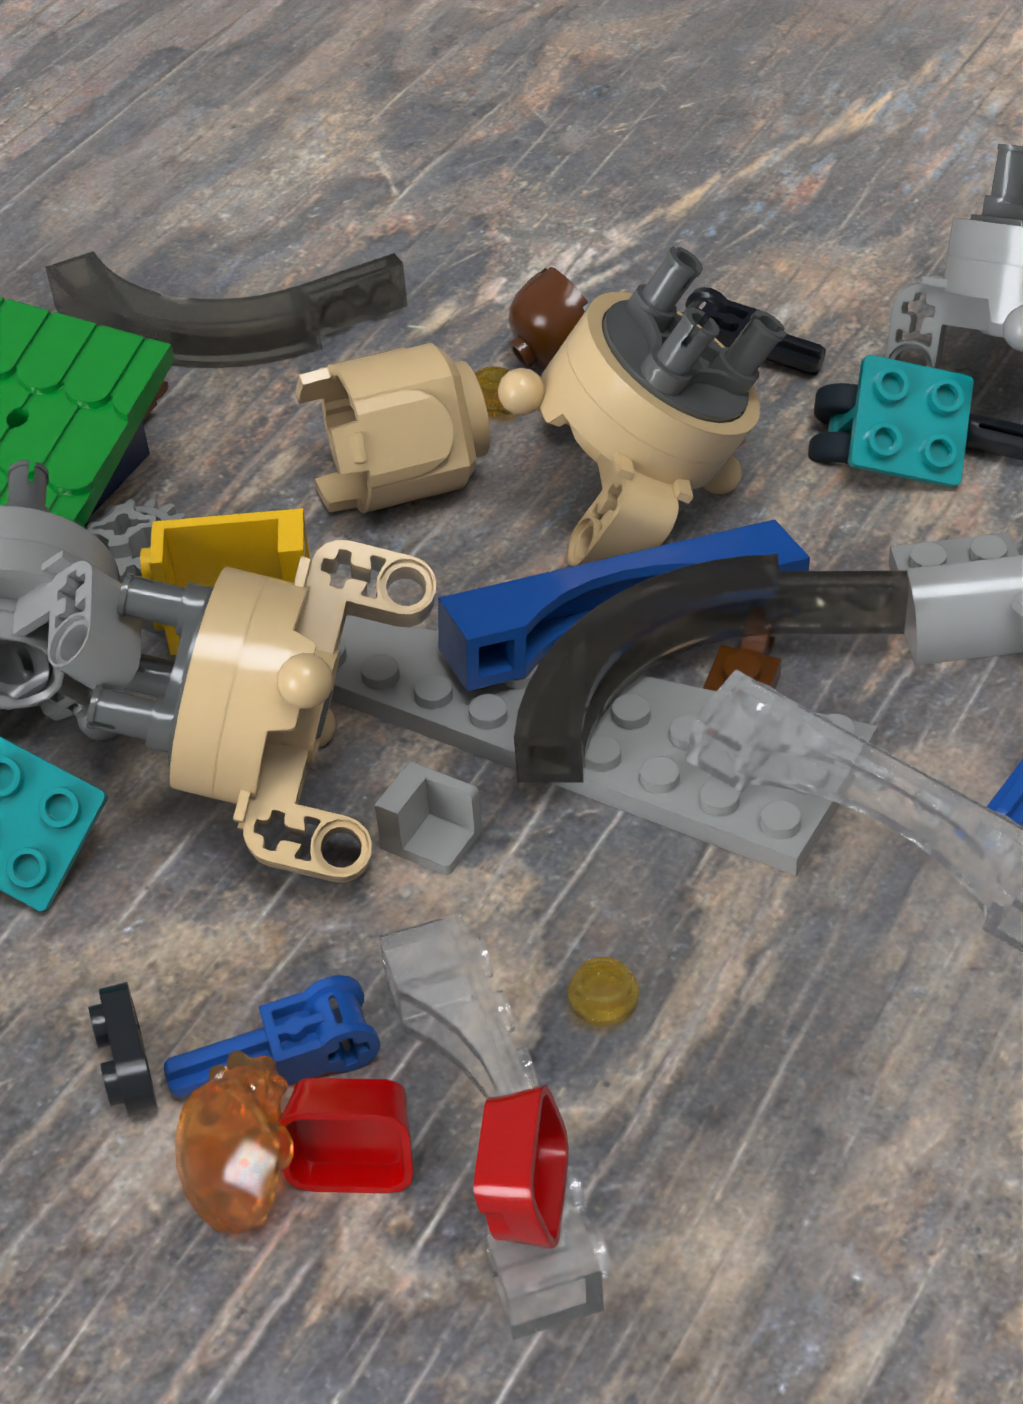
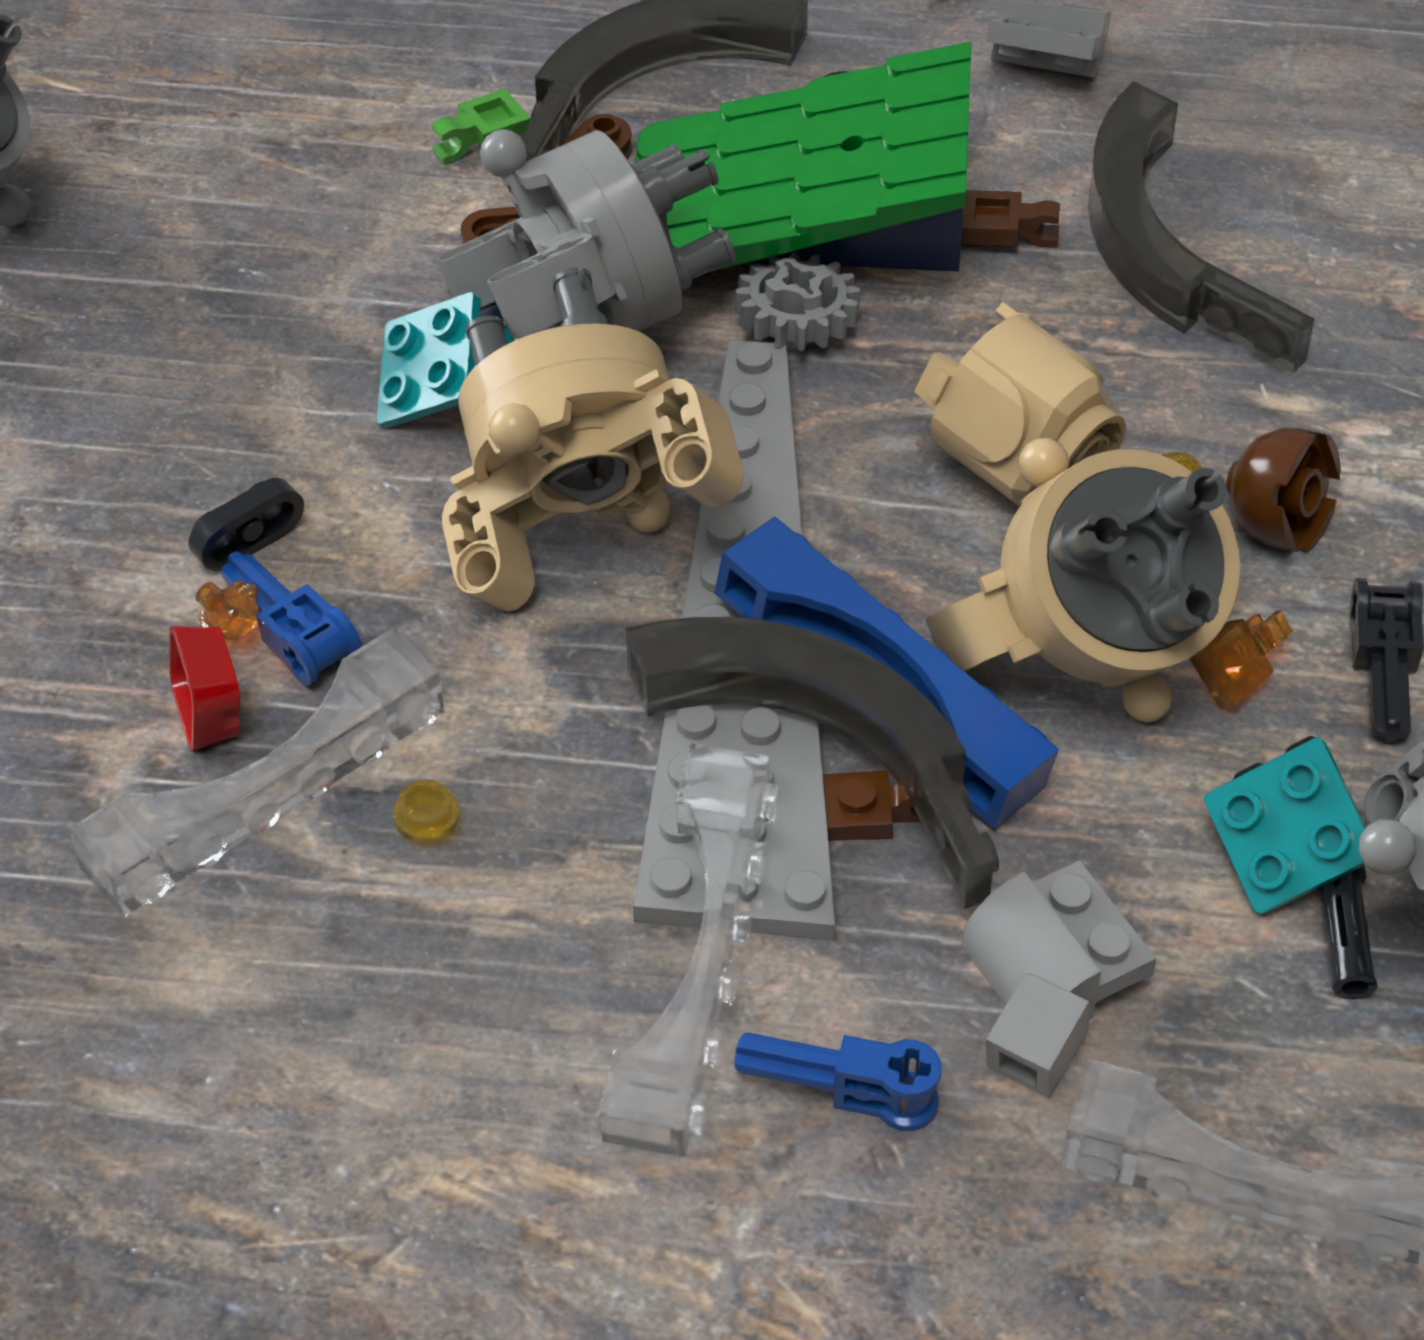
camera: 65 degrees right, 5 degrees up
(202, 547) = (722, 335): yellow panel -> none
(230, 1156) = (151, 617): clear orange dish -> none
(429, 818) = (566, 624): light grey panel -> none
(522, 1167) = (157, 784): red piece -> none

